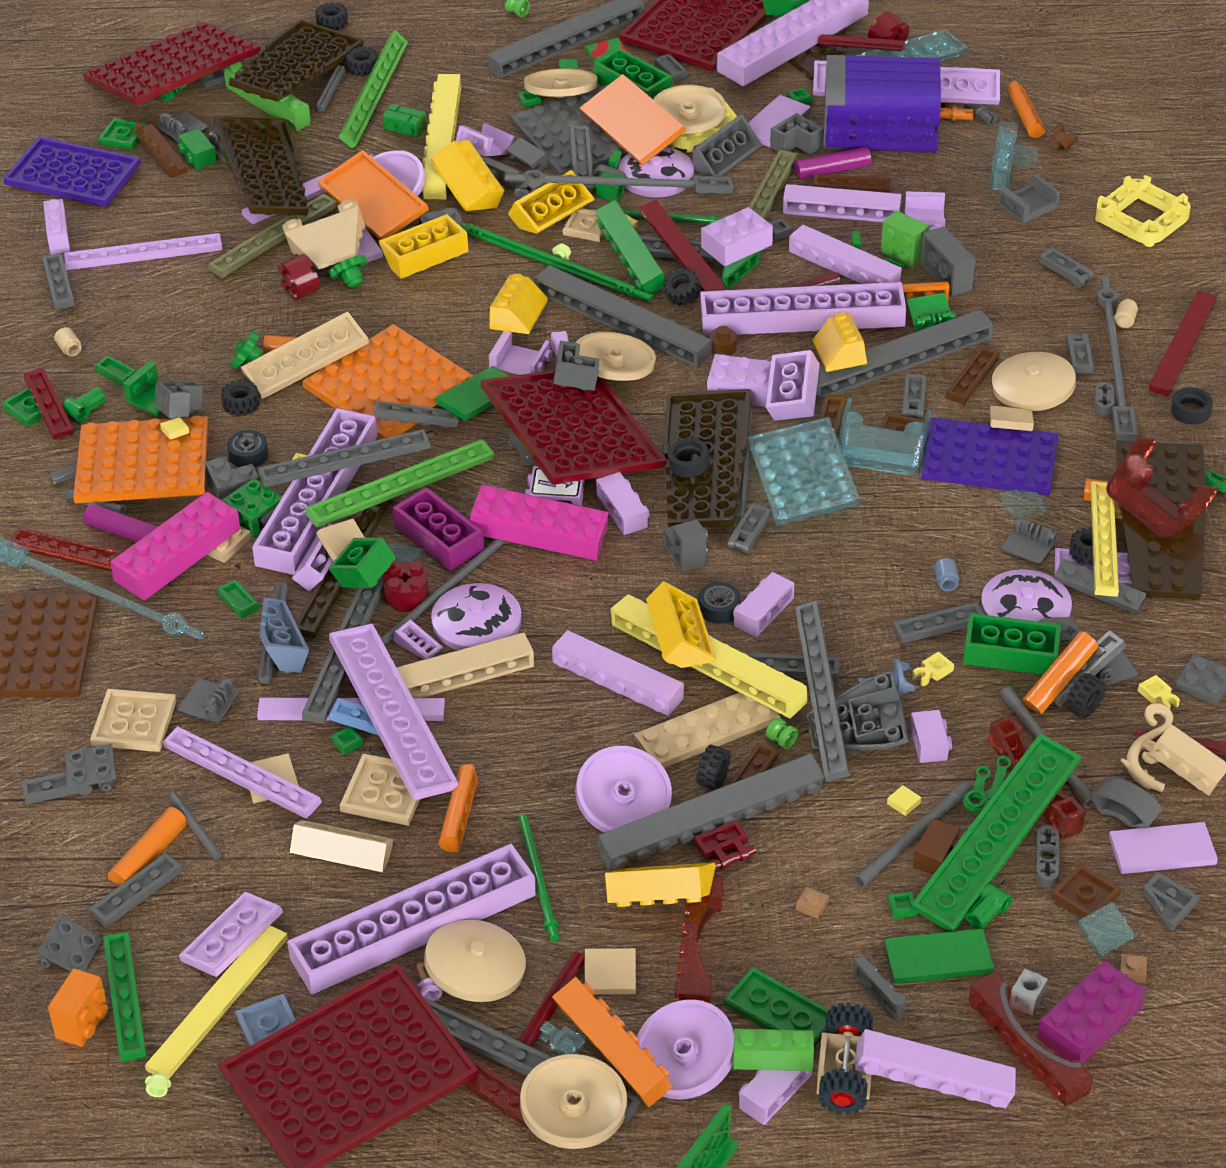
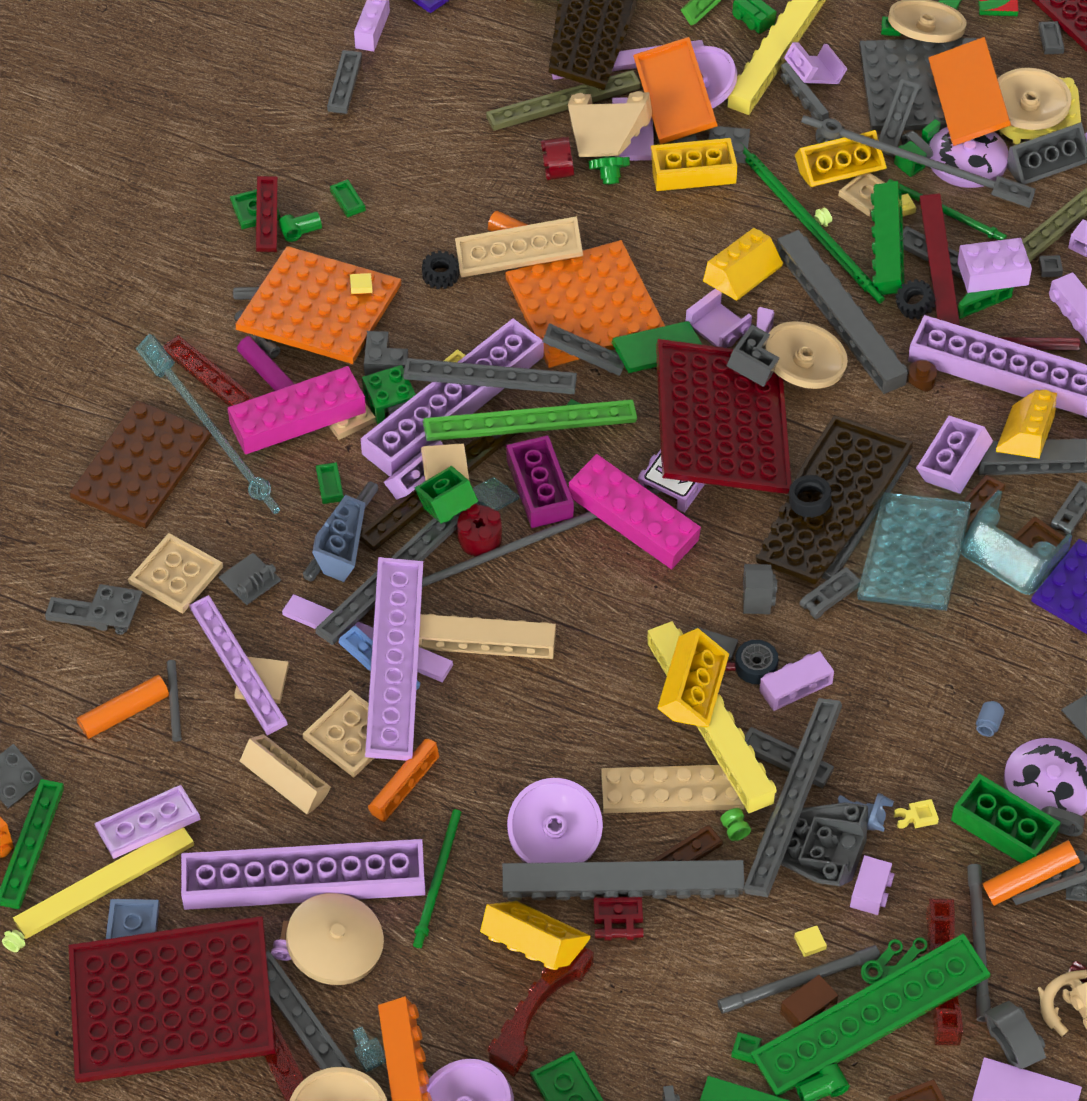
camera: 25 degrees right, 10 degrees up
(68, 341) = (319, 152): tan brick -> none
(135, 890) = (91, 744): dark grey plate -> none
(141, 388) = (364, 233): green bracket -> none
(142, 251) = (438, 75): lavender tile -> none
(178, 397) = (379, 251): dark grey brick -> none
(246, 350) = (469, 222): green plant -> none
(247, 448) = (418, 327): black wheel -> none
(347, 740) = (347, 668): green tile -> none
(412, 629) = (449, 579): lavender slope -> none
(468, 176) = (774, 100): yellow slope -> none
(475, 615) = (528, 586): lavender dish -> none
(528, 154) = (850, 94): dark grey hinge -> none
(549, 1005) = (372, 1012): dark red axle -> none
(611, 971) = (448, 999): tan tile -> none
(618, 673) = (620, 699): lavender brick -> none
(622, 503) = (726, 519): lavender brick -> none
(642, 74) = (1004, 36): green brick -> none
(713, 767) = (649, 835): black tyre -> none
(739, 374) = (911, 421): lavender brick -> none
(812, 902) = (665, 1009): medium nougat plate -> none
(935, 623) = (950, 766): dark grey plate -> none
(1042, 863) = (910, 1045): dark grey beam -> none
(1085, 695) = (1043, 905): black tyre -> none

